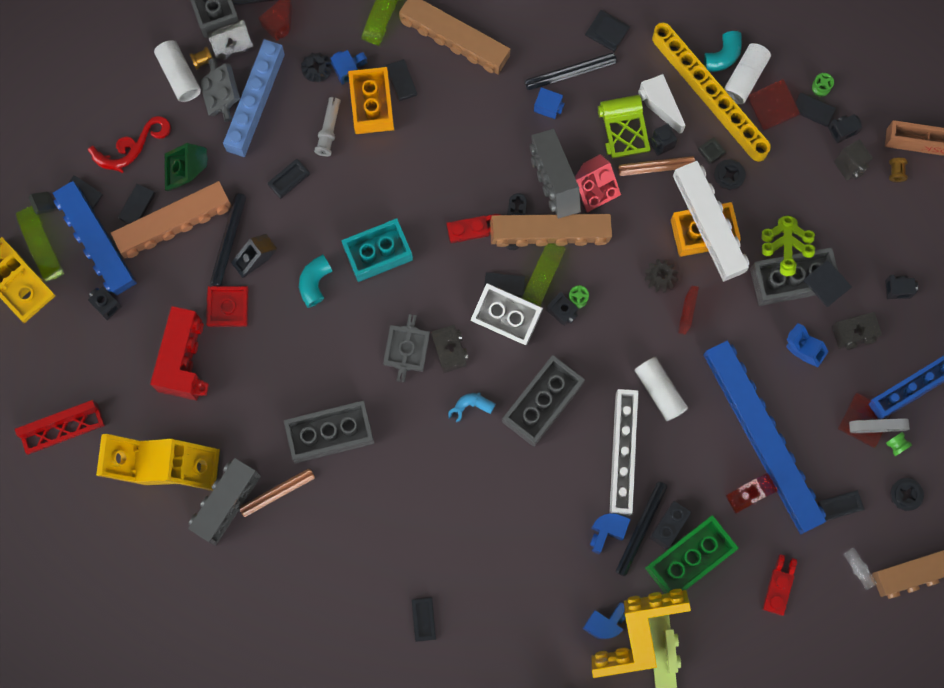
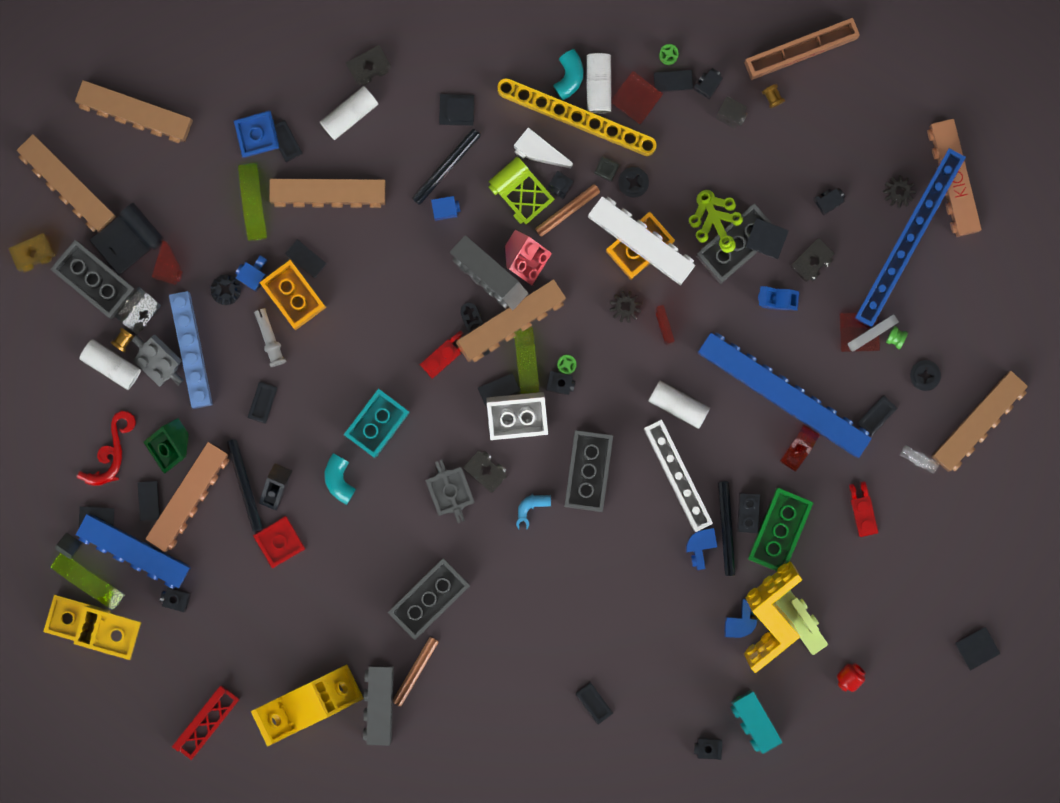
camera: 30 degrees left, 10 degrees up
(174, 364) = (265, 609): red hinge -> none

